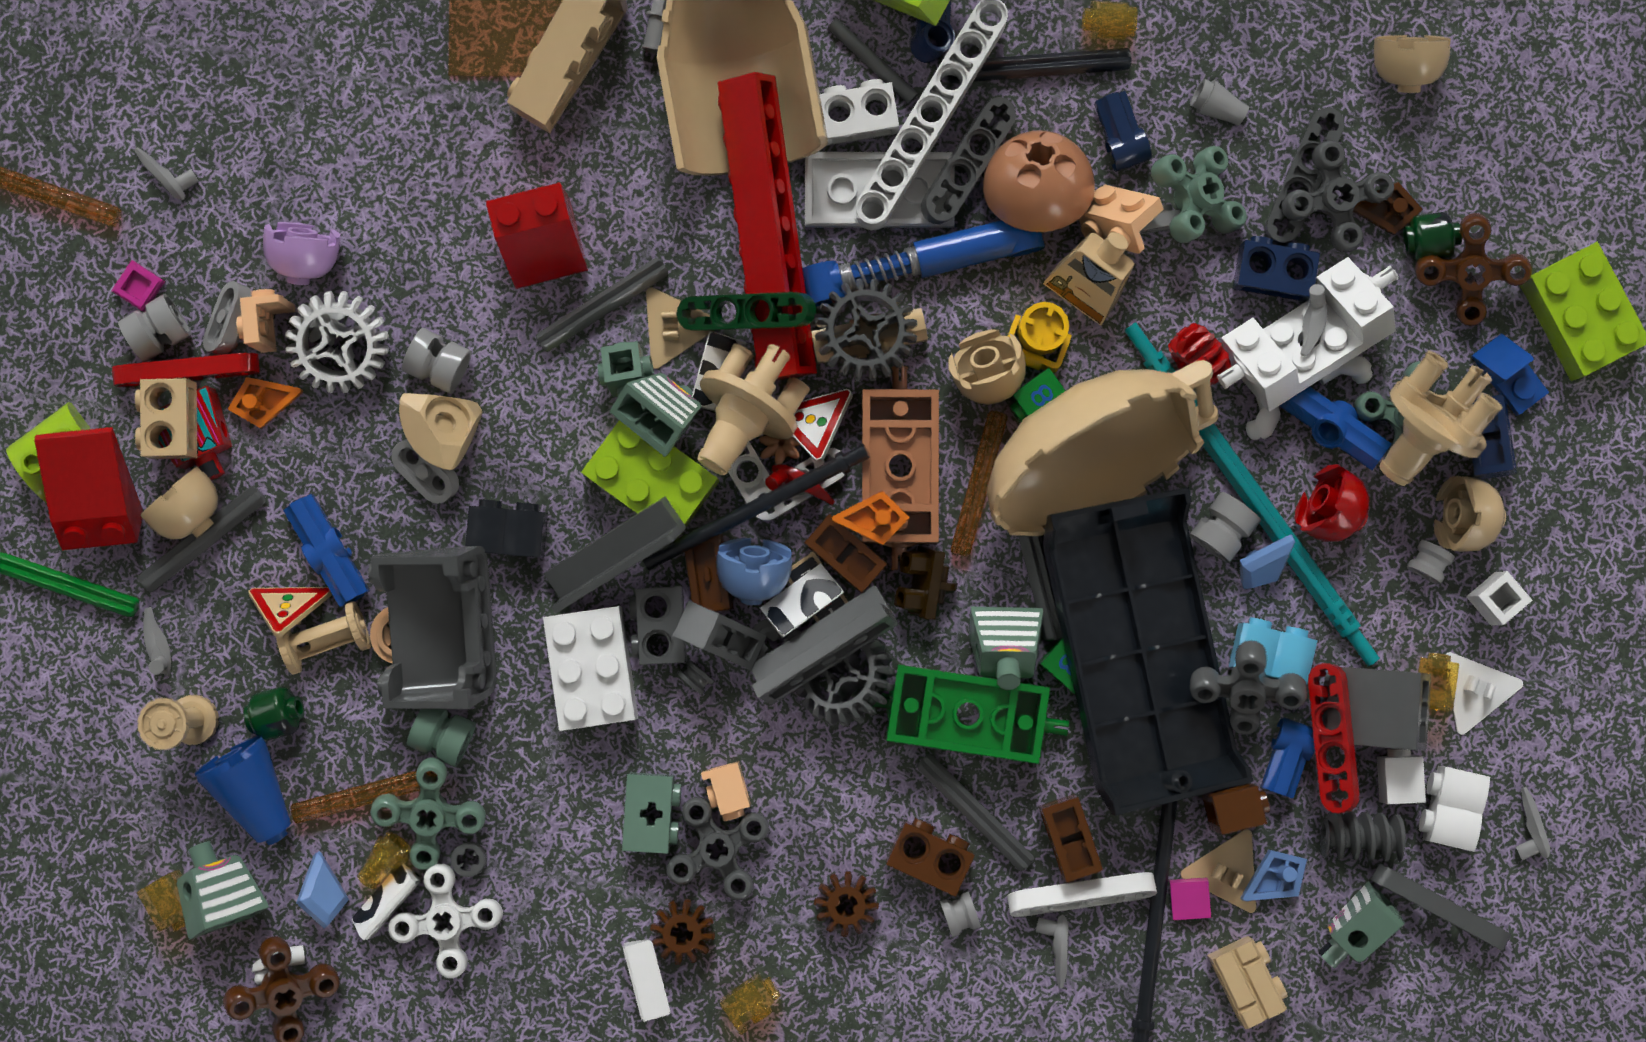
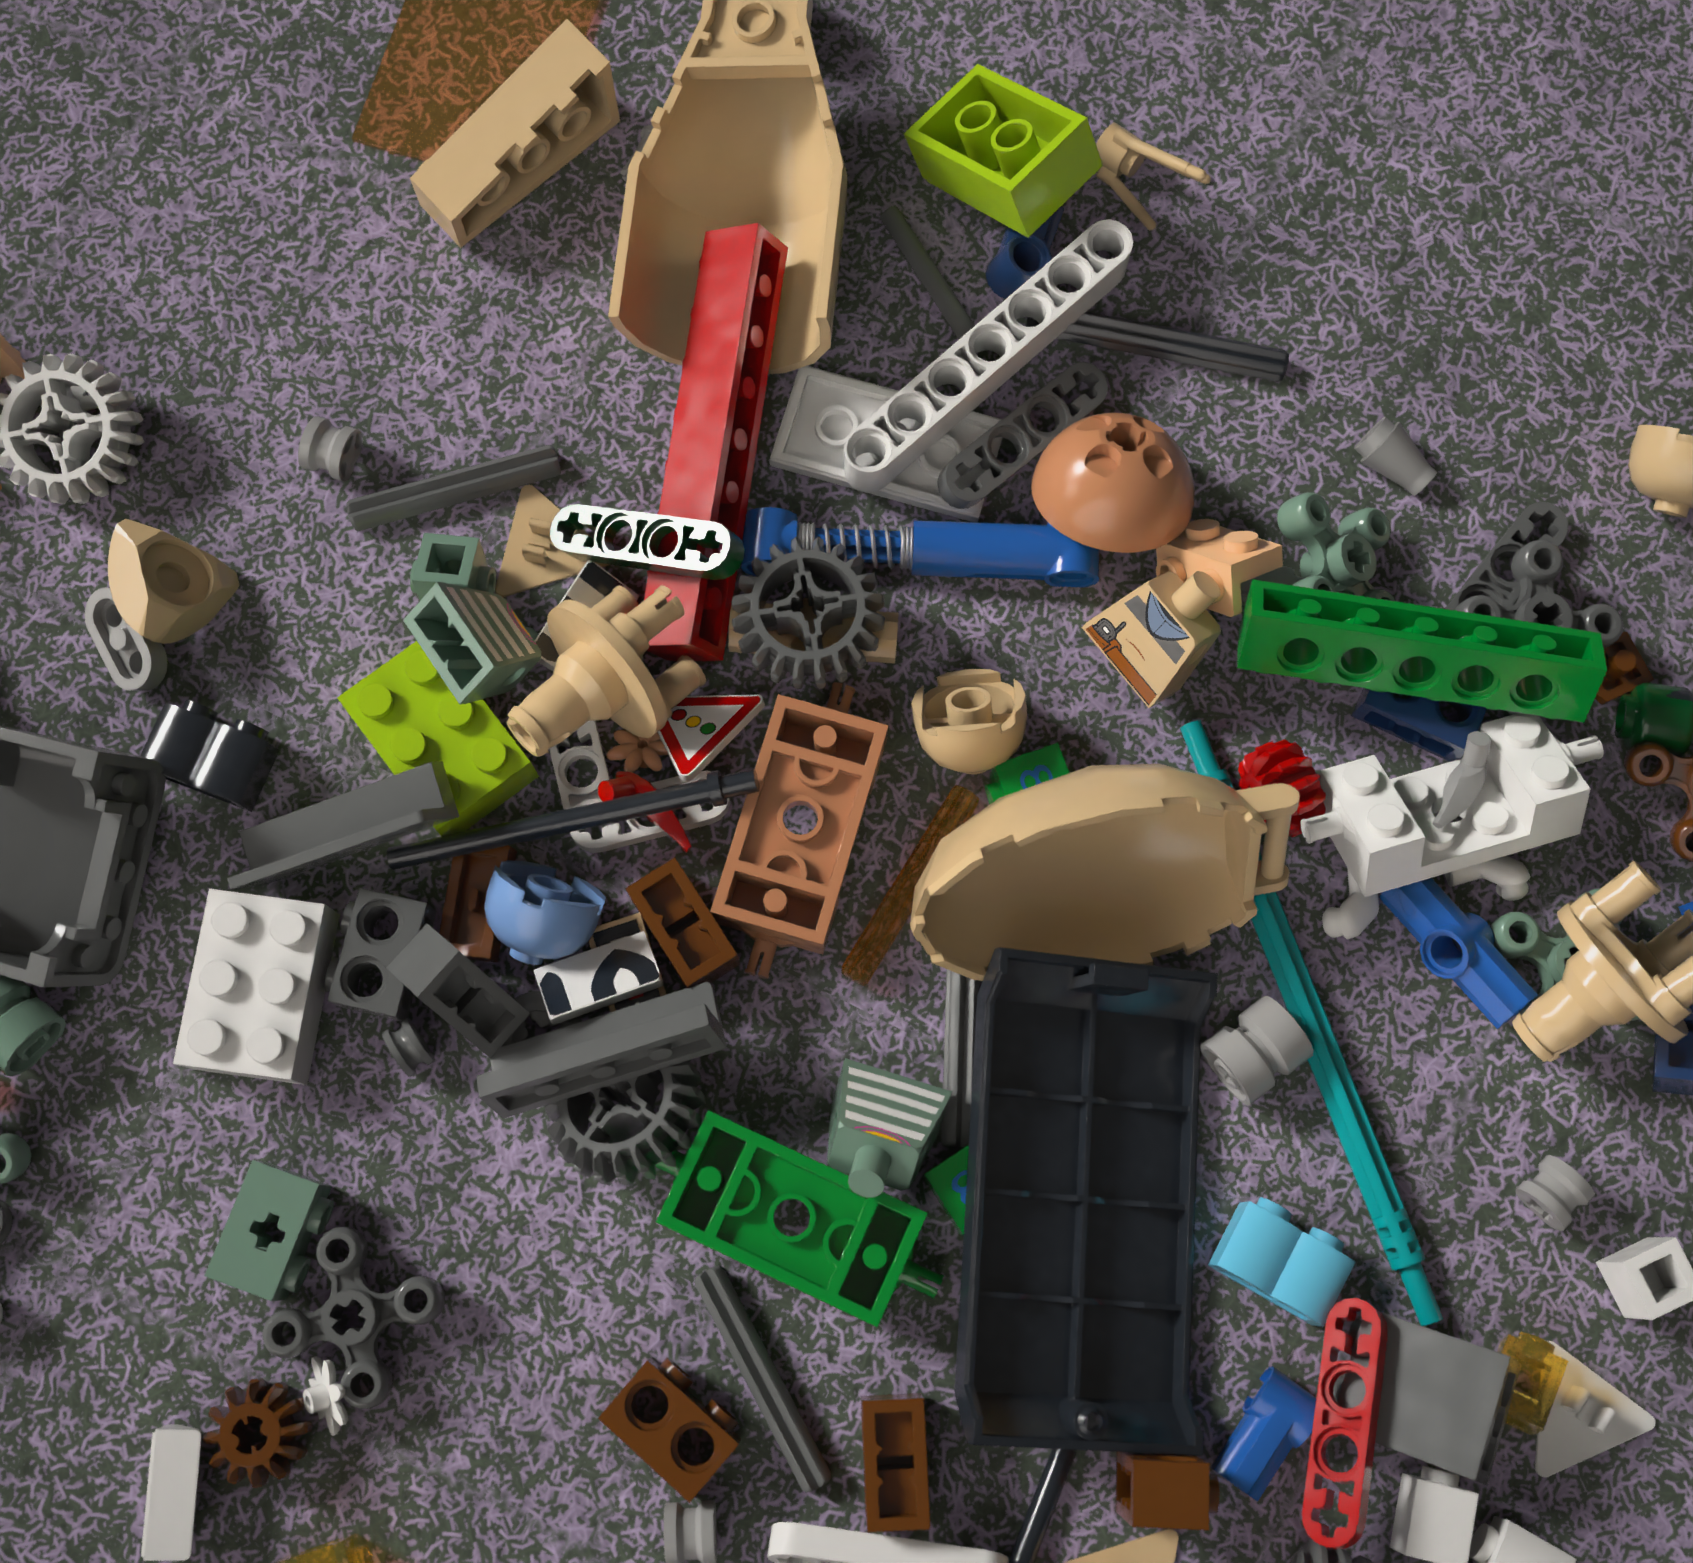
camera: 10 degrees right, 10 degrees down
(300, 251) = (61, 300): lavender cylinder -> none
(439, 361) = (191, 490): light grey wheel -> none
(512, 302) = (329, 448): none -> light grey wheel
(537, 235) = (390, 357): red slope -> none
(716, 900) = (325, 1395): none -> white plant
(727, 790) = (398, 1231): light nougat brick -> none
(834, 900) = (505, 1447): reddish brown gear -> none
(860, 123) = (886, 345): white brick -> none
(873, 518) = (736, 879): orange piece -> none
(928, 582) = (794, 1006): dark brown hips -> none
(1041, 332) = (1062, 697): yellow piece -> none
(1110, 20) = (1271, 307): clear yellow brick -> none
(1124, 137) = (1249, 463): dark blue piece -> none
(1248, 687) = (1232, 1303): dark grey gear -> none
(1264, 245) = (1420, 651): none -> green brick
(1265, 564) = (1304, 1122): medium blue piece -> none
(1335, 507) = (1434, 1067): red cylinder -> none
(1470, 514) = (1635, 1134): tan cylinder -> none

